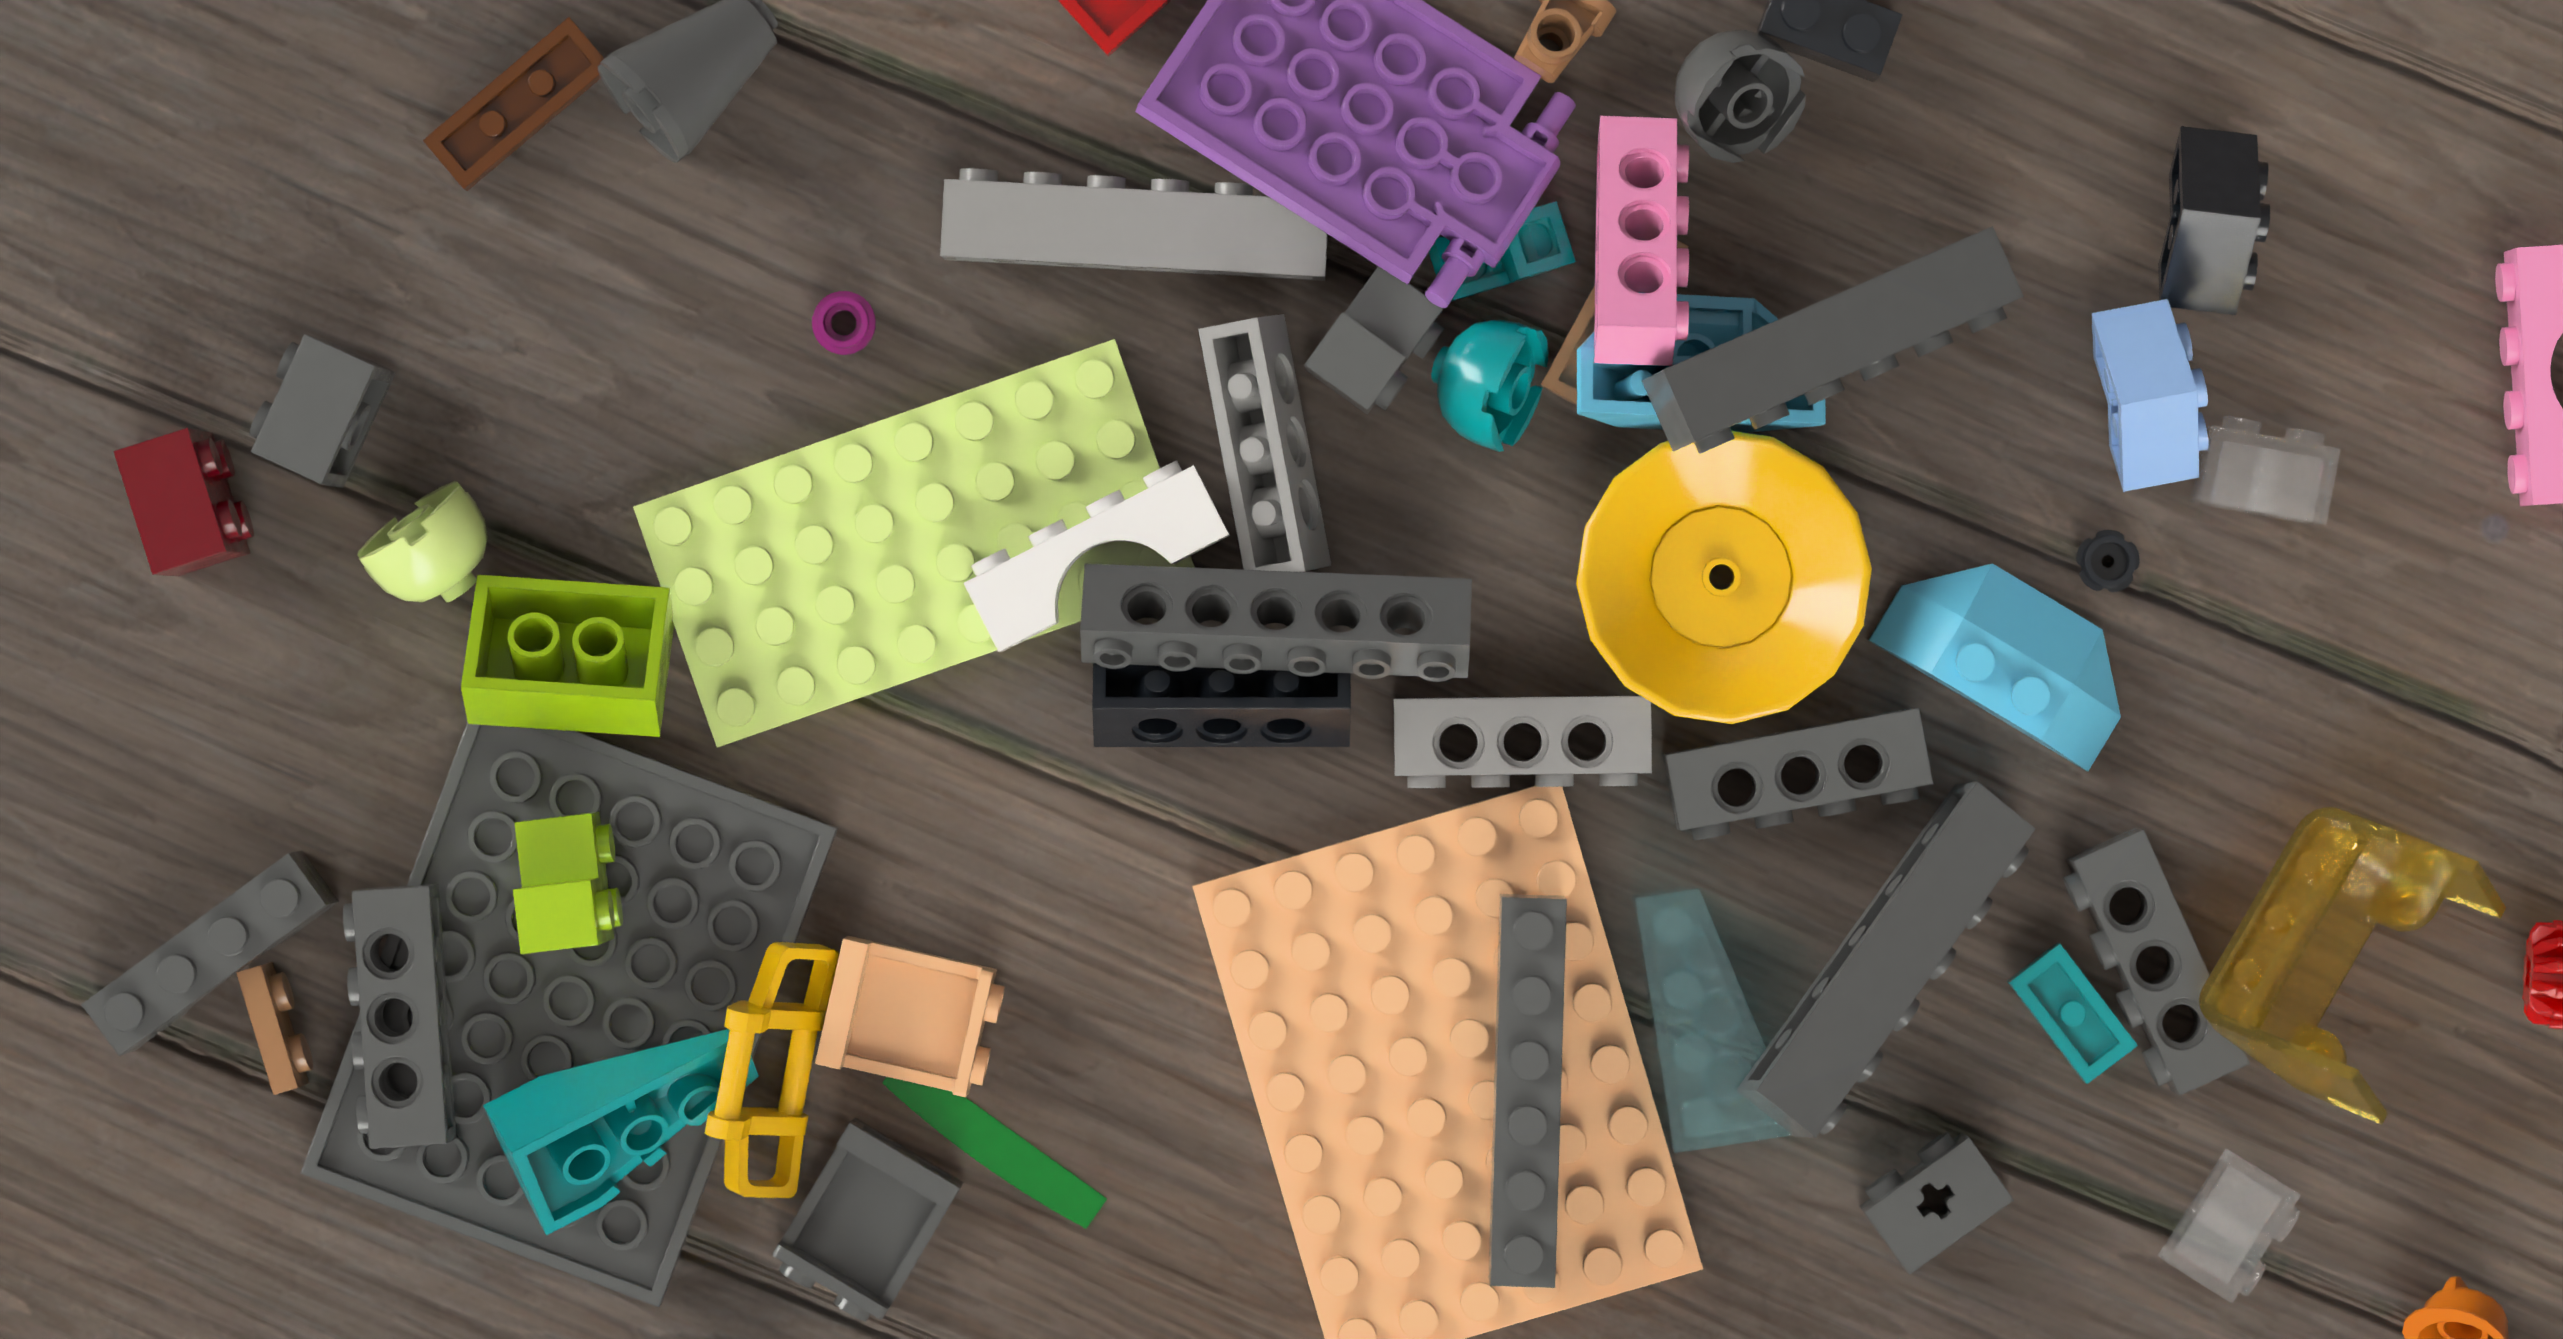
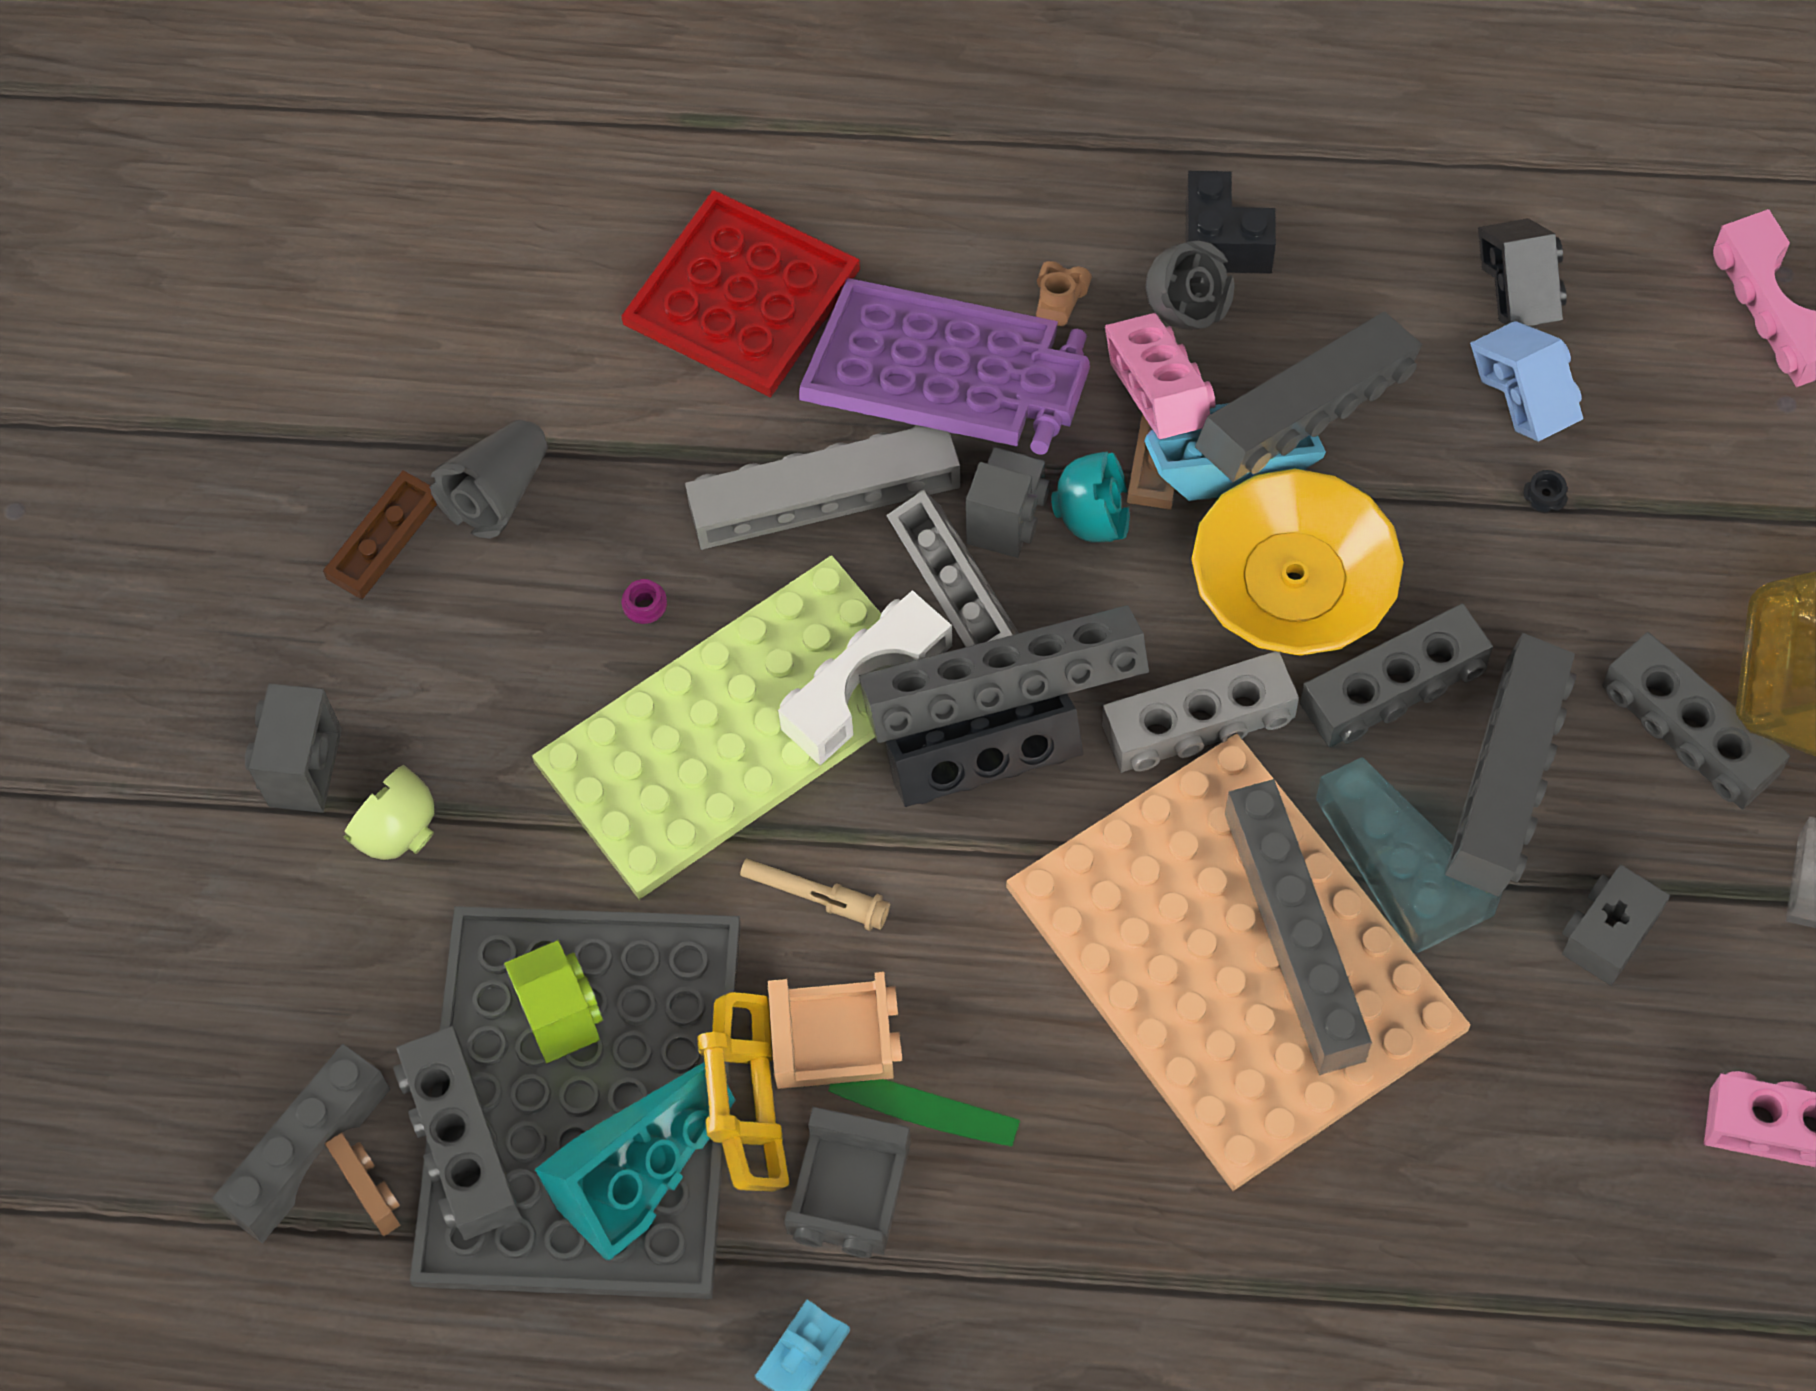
camera: 20 degrees left, 25 degrees down
(184, 501) = (211, 834): dark red brick -> none
(568, 655) = (512, 852): lime brick -> none
(971, 840) = (841, 900): none -> tan pin
(1536, 249) = (1089, 427): teal slope -> none
(2009, 656) = (1507, 568): medium azure wedge -> none
(2072, 1013) = (1652, 773): teal plate -> none
(2267, 473) = (1627, 407): clear brick -> none

